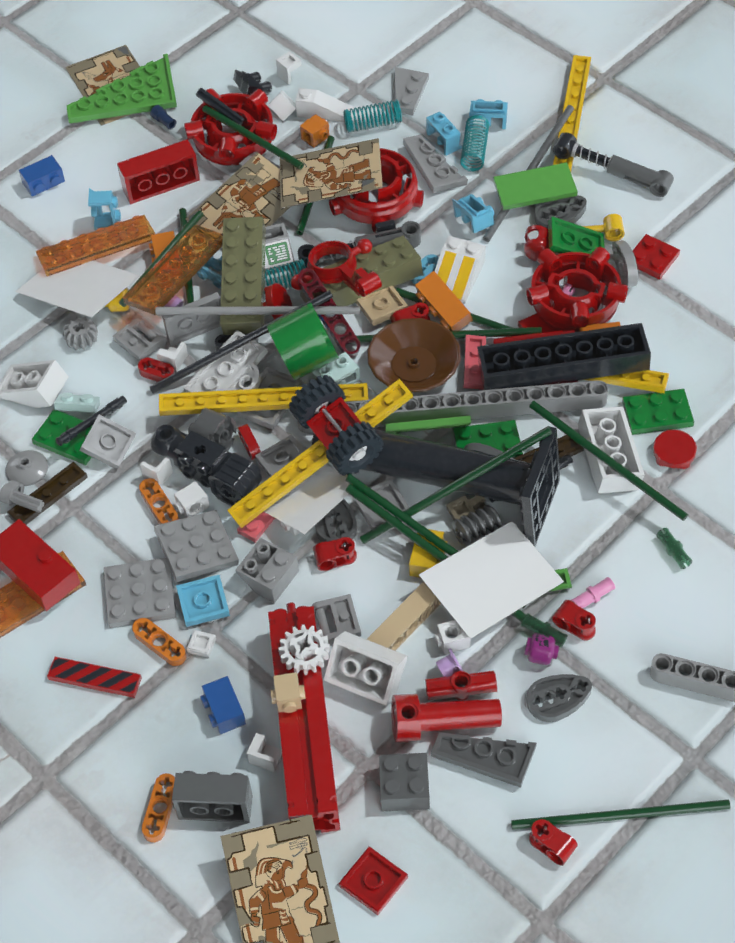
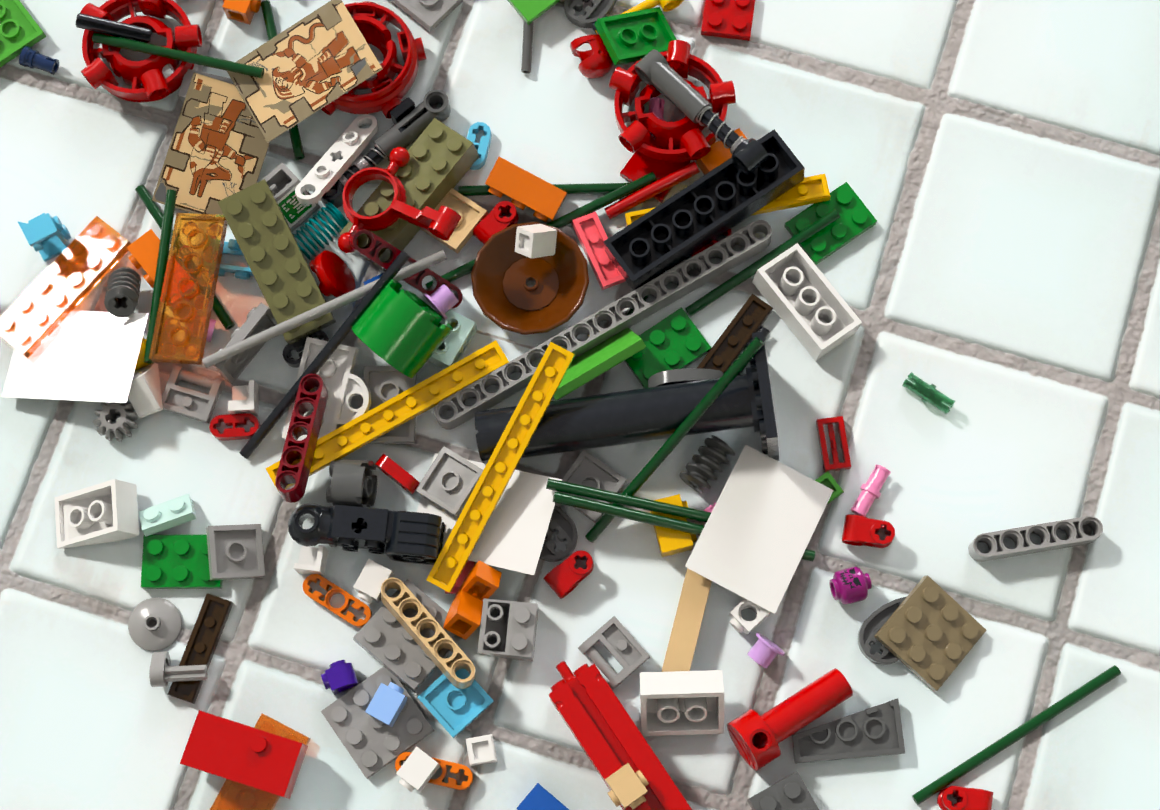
camera: 25 degrees left, 20 degrees up
(73, 432) = (190, 564): black piece -> none
(109, 322) = (146, 391): none -> white slope
(129, 550) = (339, 677): none -> dark purple plate
(131, 257) = (122, 292): none -> dark grey piece
(146, 629) = (417, 770): none -> white brick
(151, 576) = (387, 703): none -> light blue brick
(158, 171) = (83, 150): red brick -> none
(193, 382) = (305, 448): none -> dark red beam
(207, 542) = (429, 645): none -> tan beam
(241, 543) = (467, 605): none -> orange brick
(302, 646) = (630, 724): white gear -> none
(309, 240) = (326, 171): none -> white piece
(342, 341) = (442, 300): none -> lavender piece
(346, 438) = (506, 432): black plate -> none
(429, 330) = (535, 240): none -> white panel
(460, 265) = (517, 129): white slope -> none
(463, 506) = (683, 451): dark tan plate -> none
(474, 210) = (490, 49): medium azure window -> none
(475, 684) = (801, 658): red piece -> none
(544, 628) = (841, 559): clear green pin -> none
(574, 258) = (656, 71): none -> piece
(576, 415) = (752, 269): none -> dark green piece
(577, 568) = (823, 447): none -> red tile
(587, 708) = (930, 633): none -> dark tan plate
(625, 263) = (706, 41): light grey piece -> none
(658, 497) = (816, 324): dark green piece -> none
(674, 449) = (872, 266): red tile -> none

